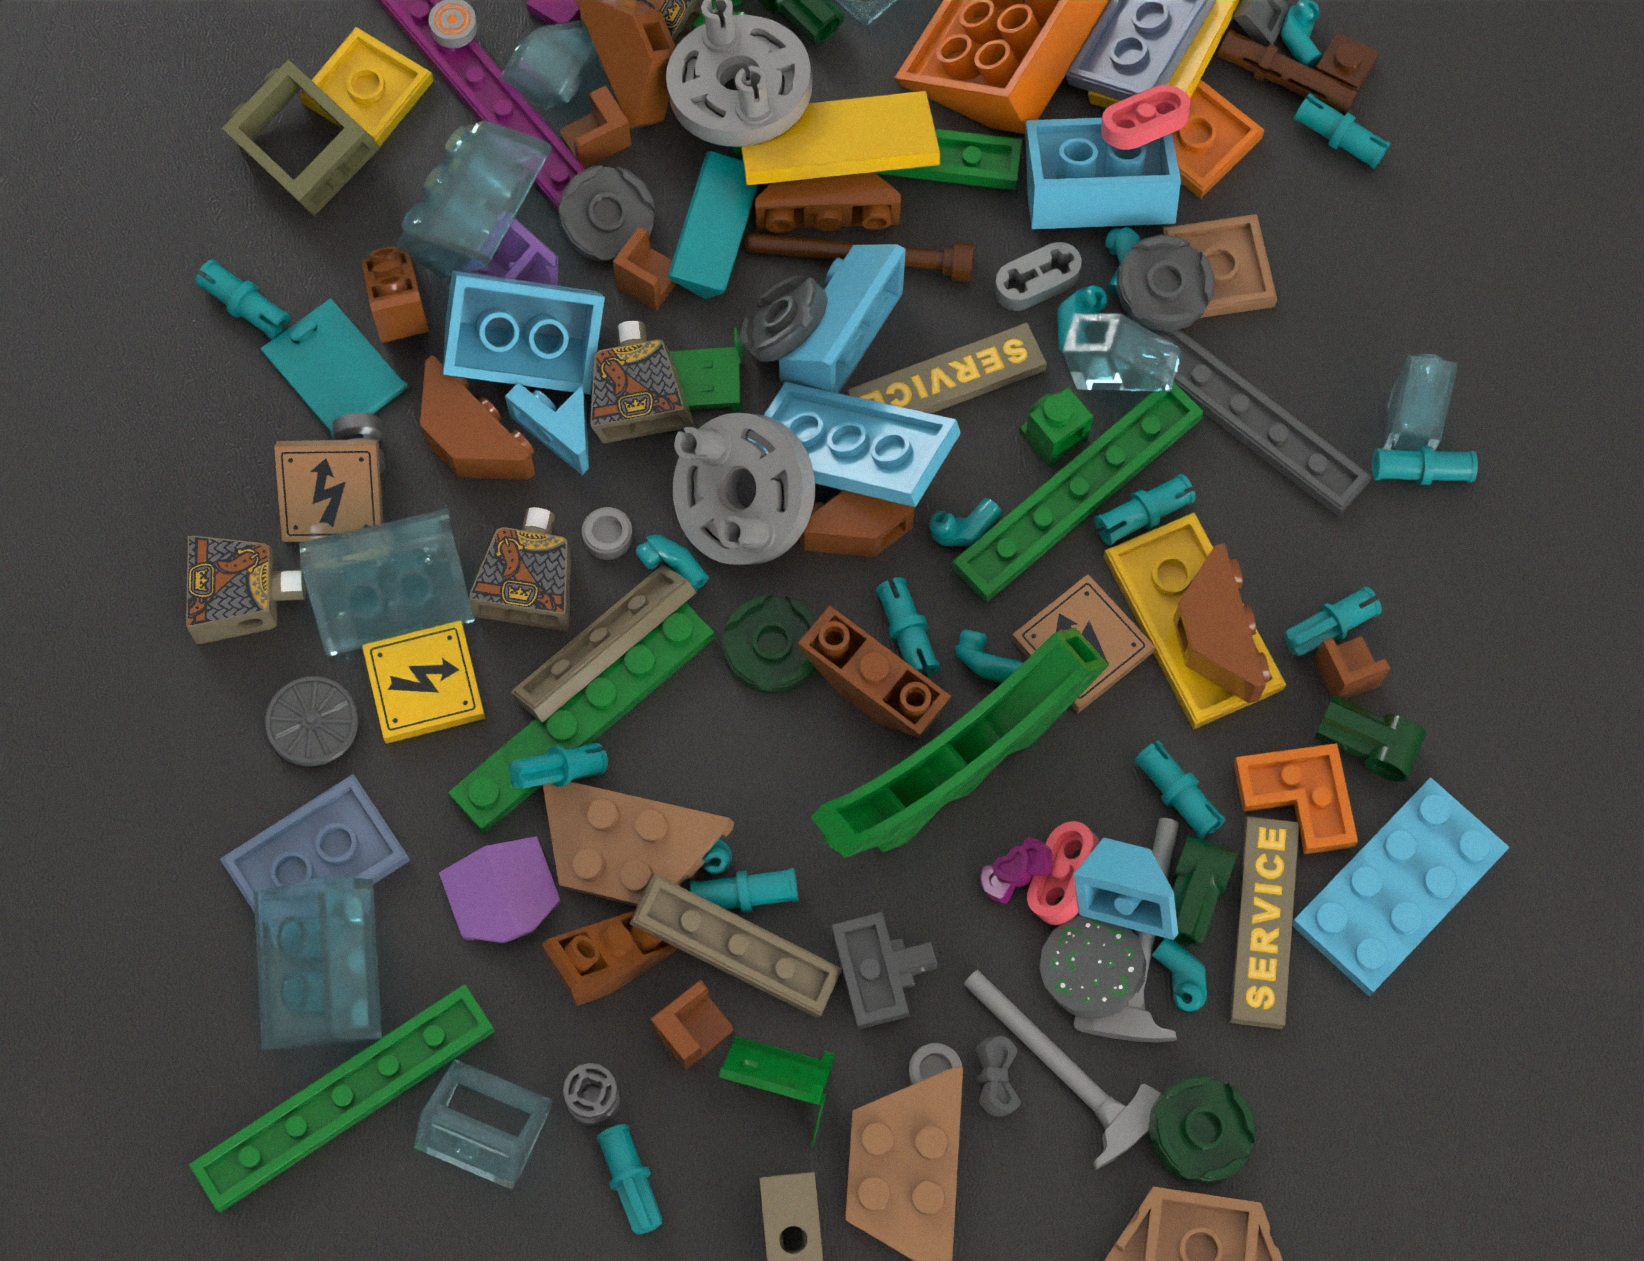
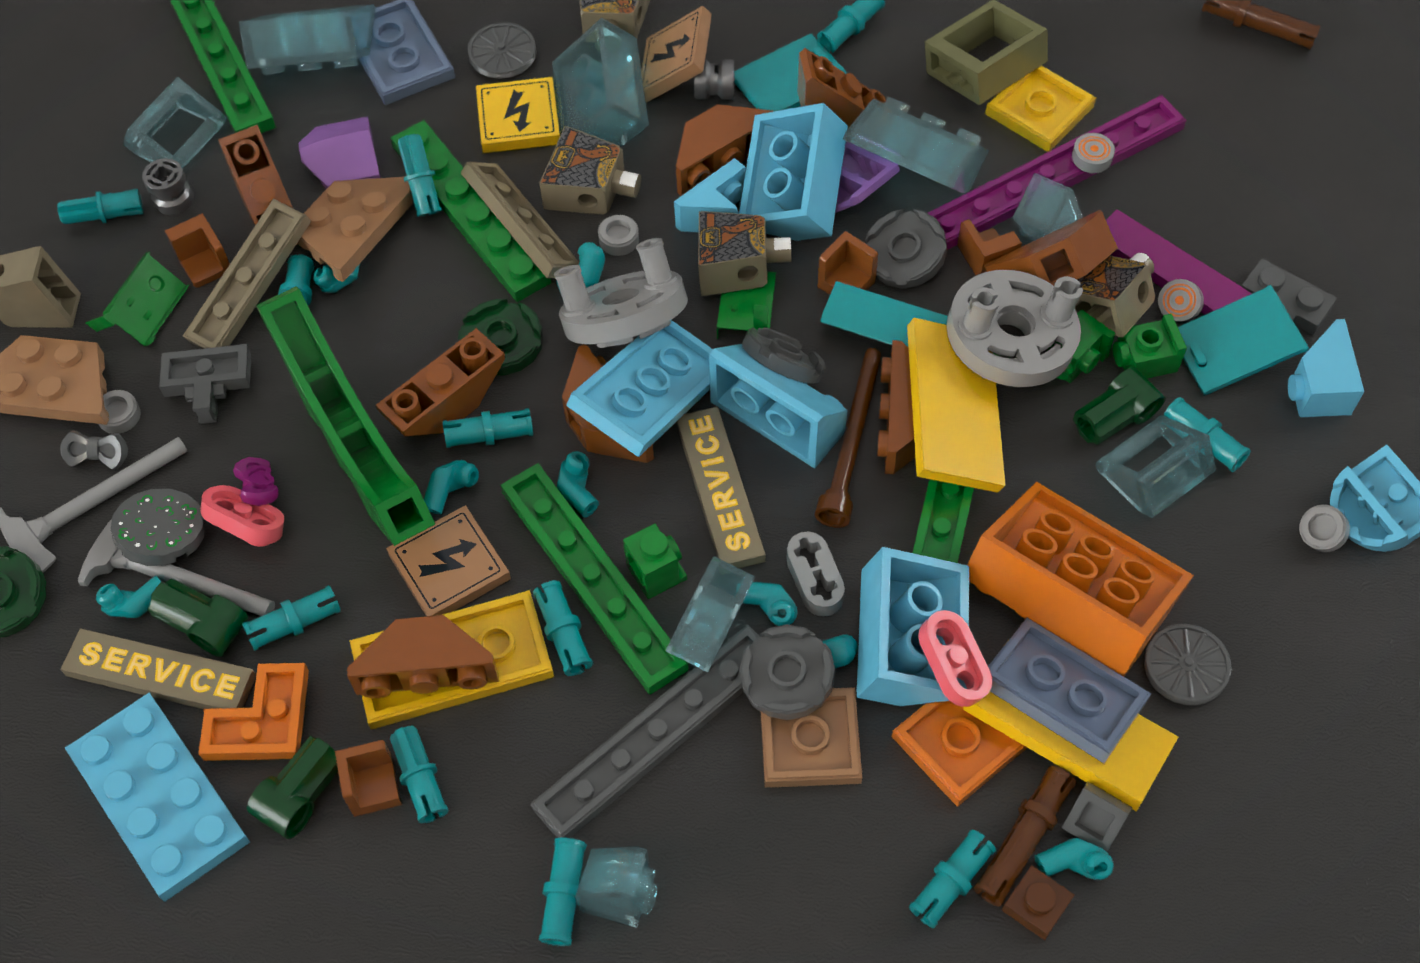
camera: 100 degrees right, 10 degrees down
(1126, 888) = (203, 548): medium azure slope -> none

